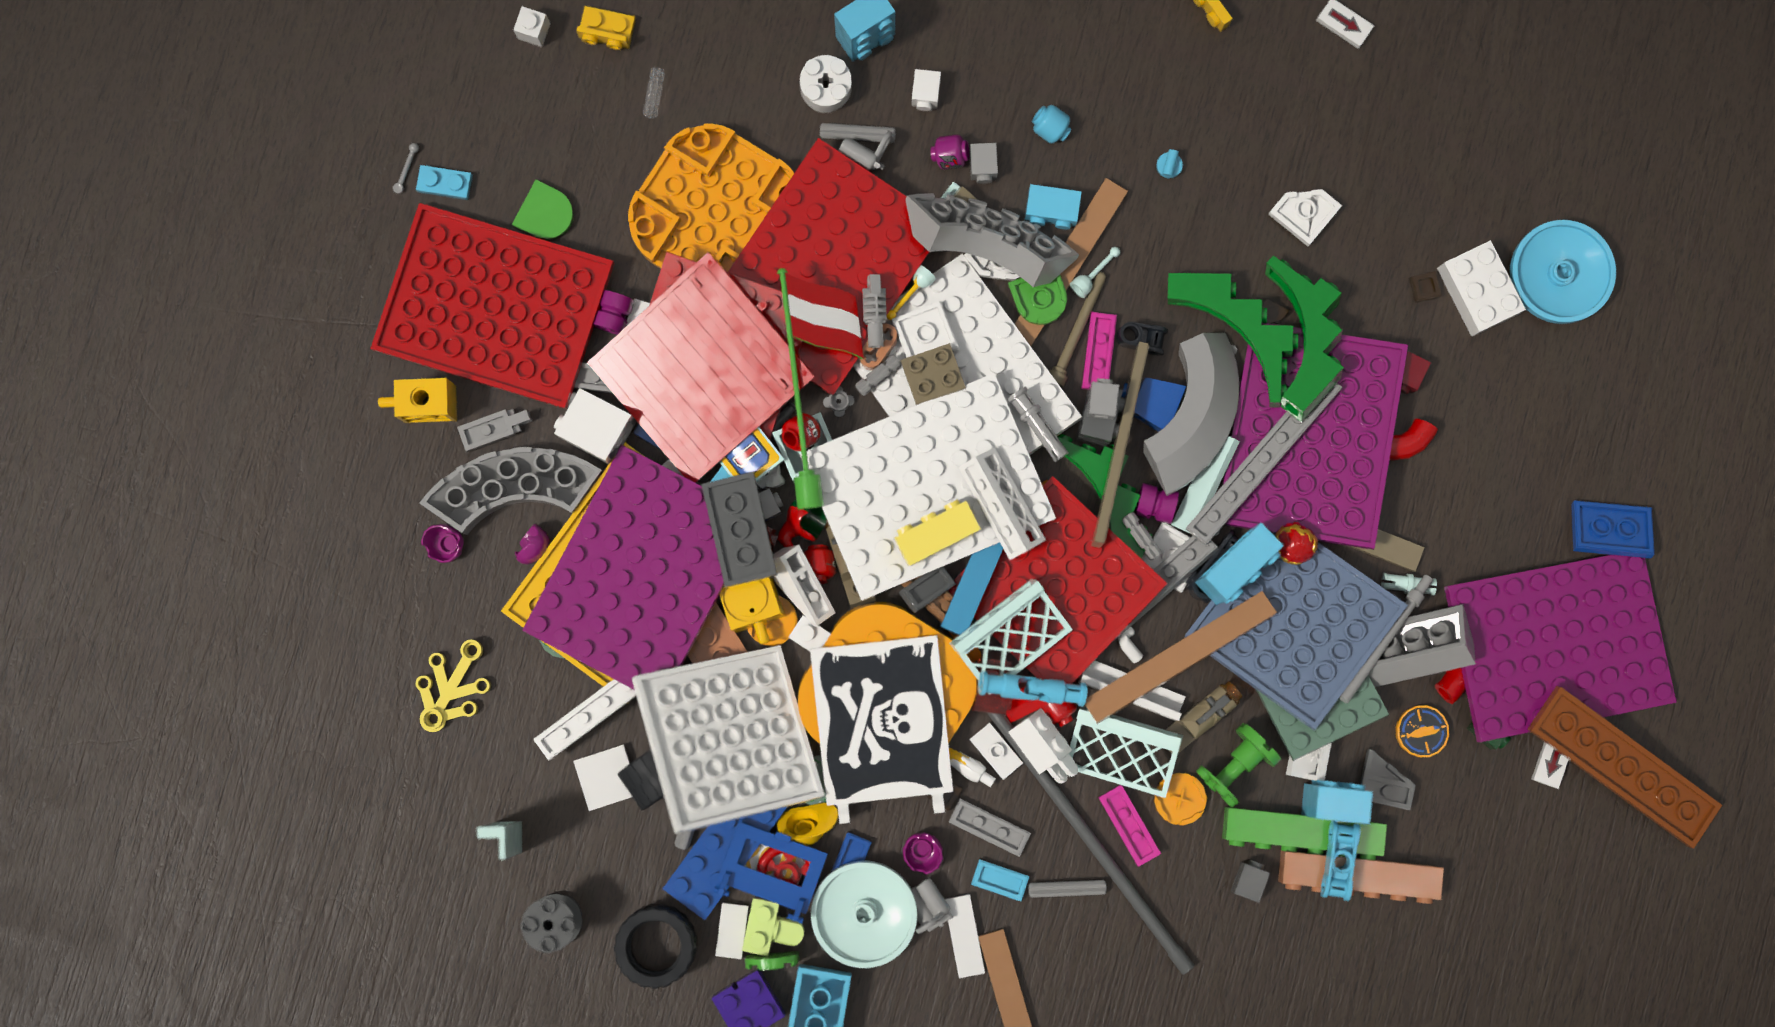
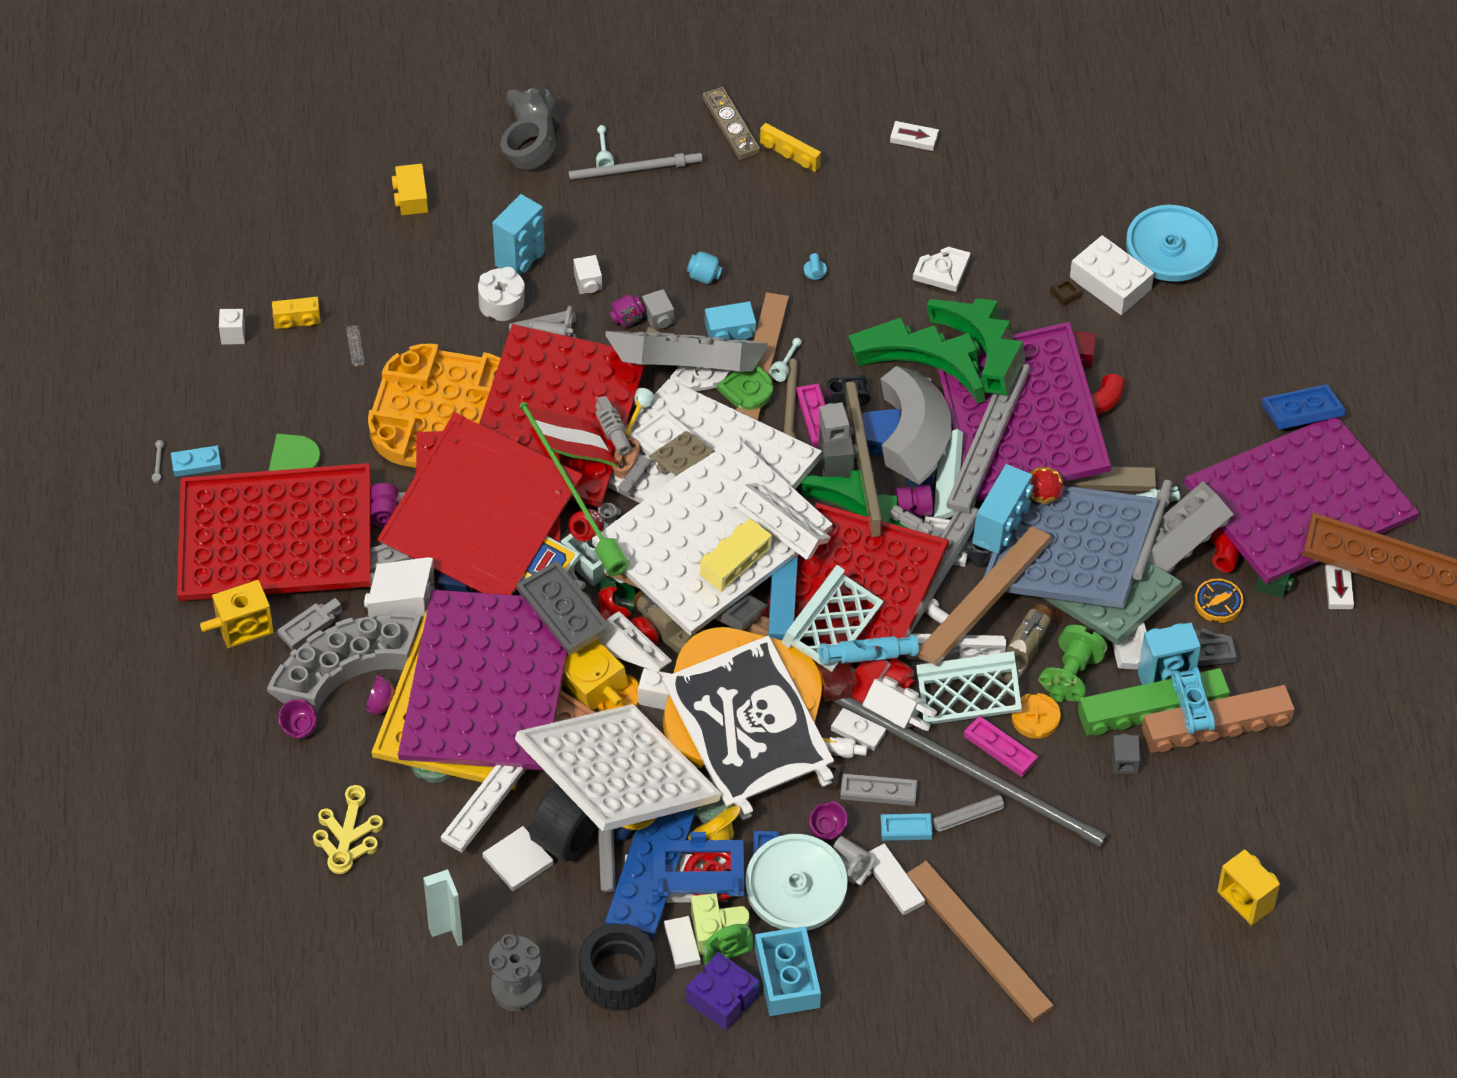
camera: 20 degrees left, 30 degrees down
(1031, 414) = (777, 456): light grey pin -> none

